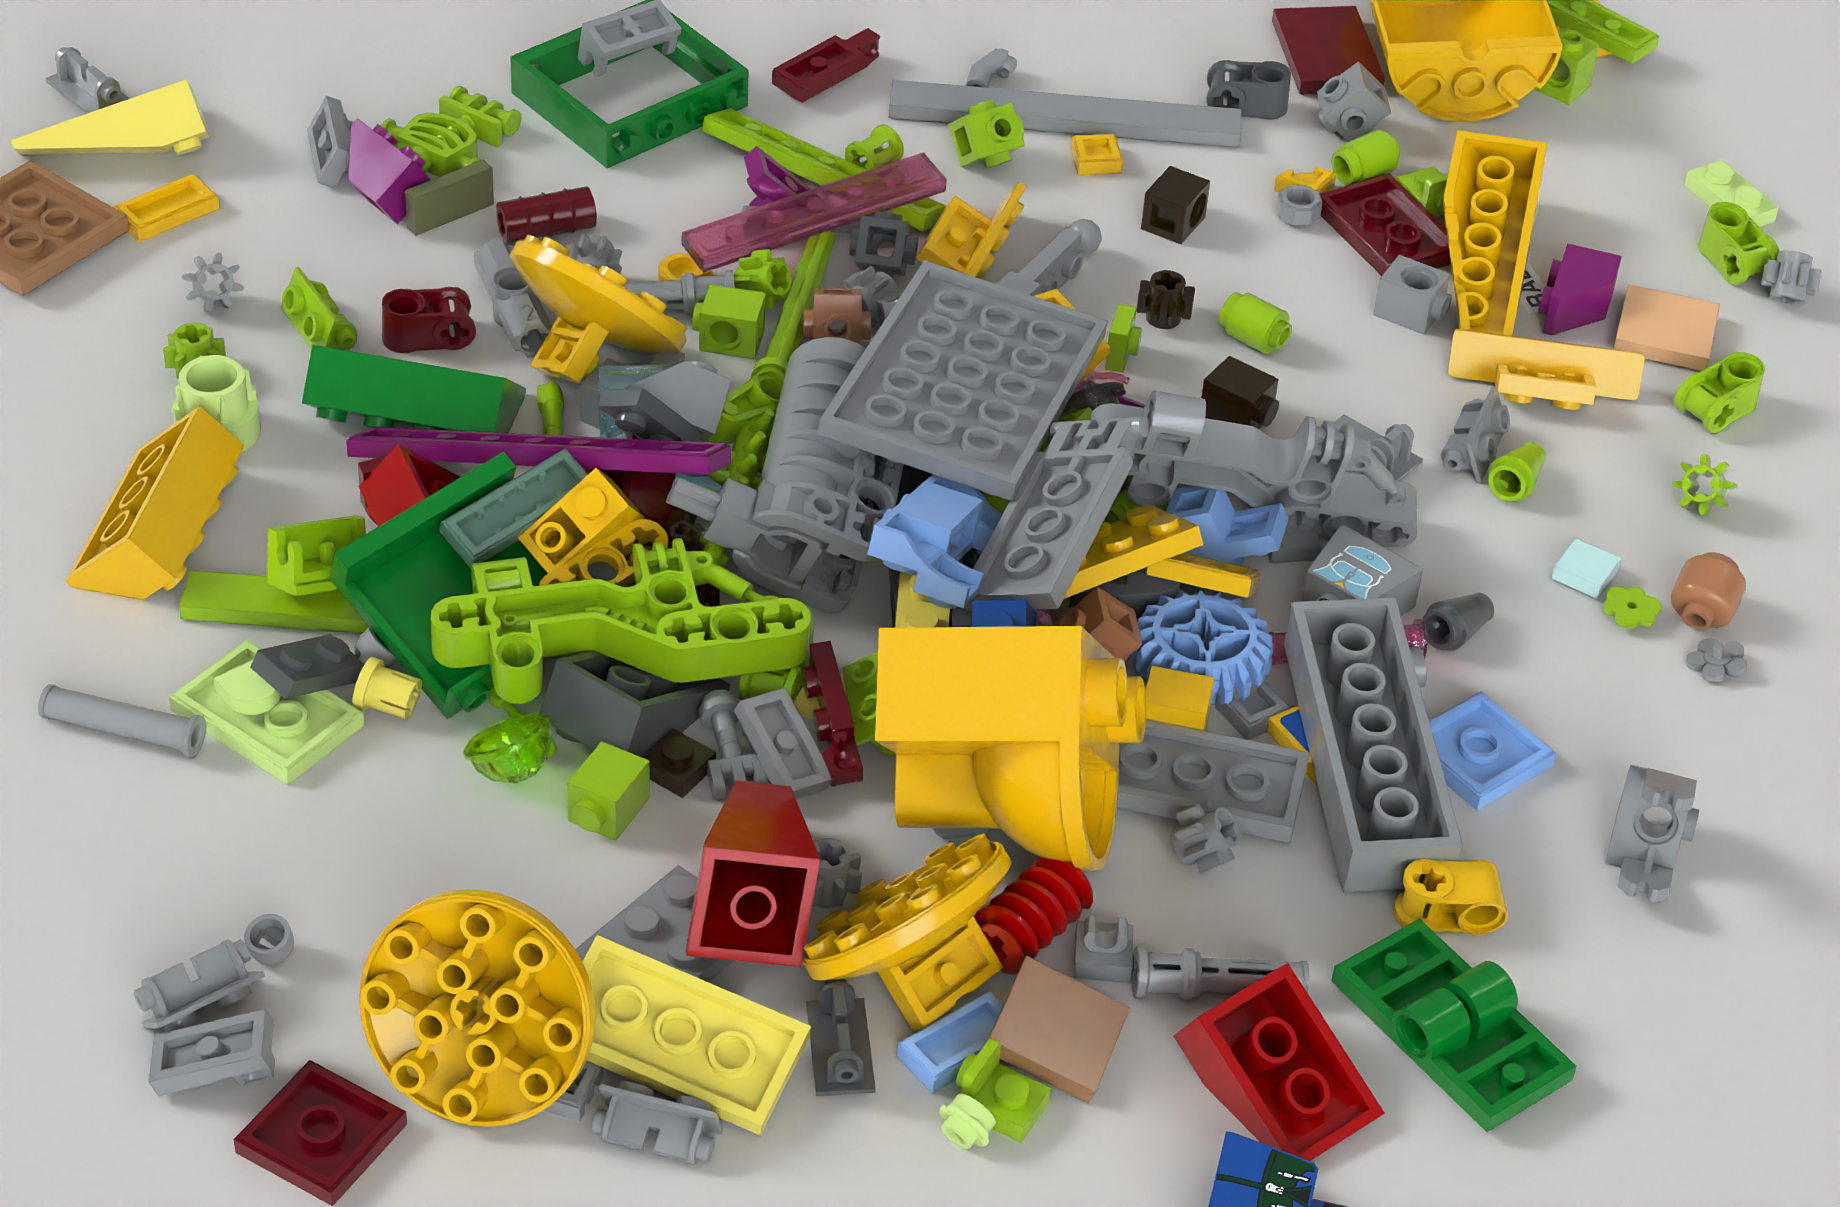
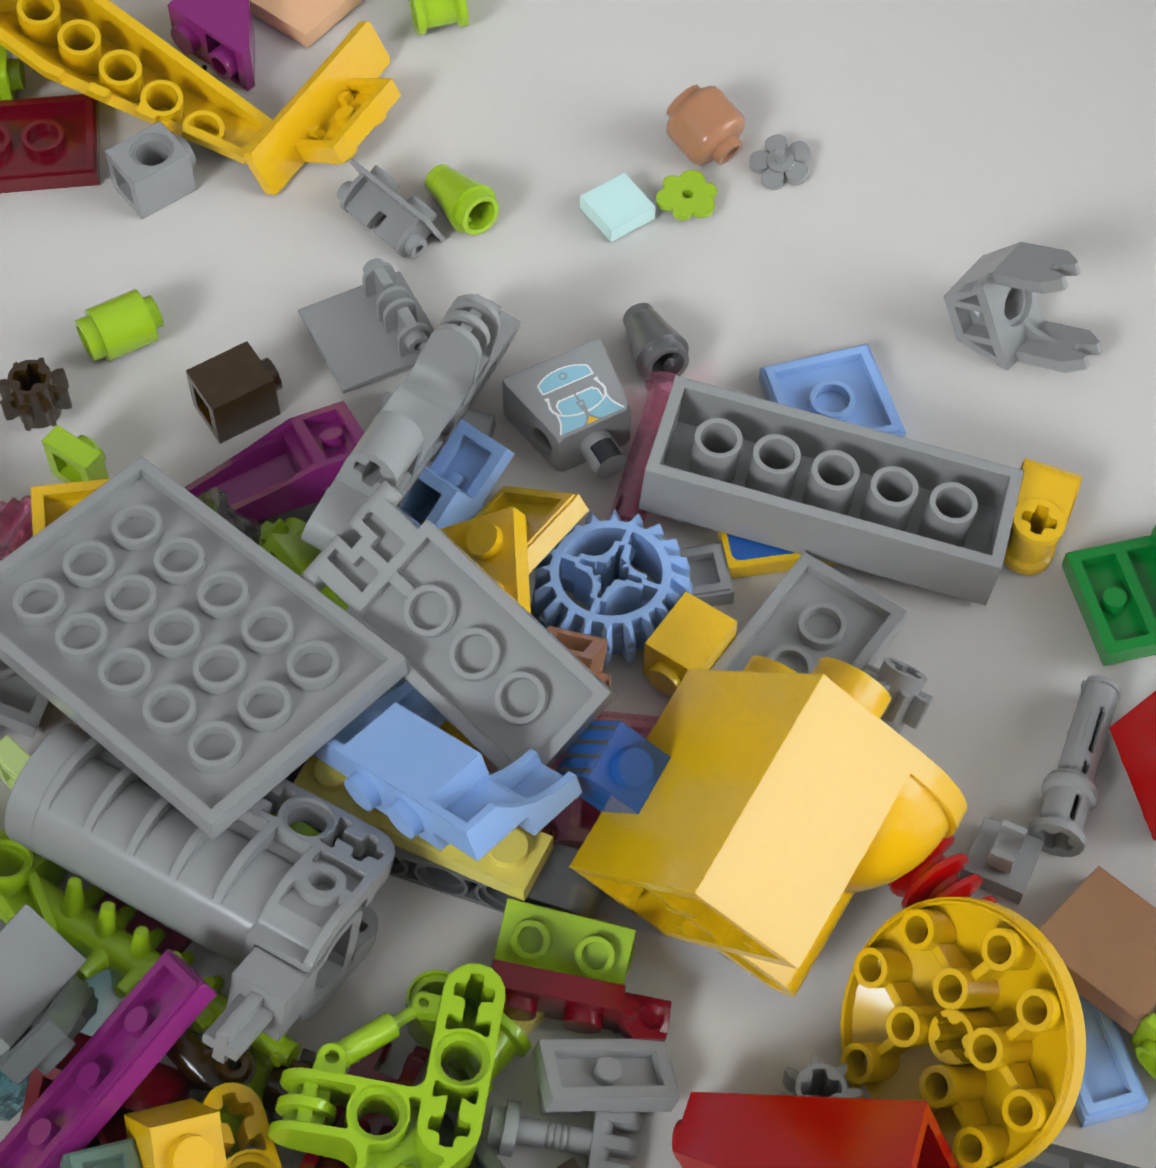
camera: 65 degrees left, 15 degrees up
(1691, 486) = (575, 60): lime gear -> none

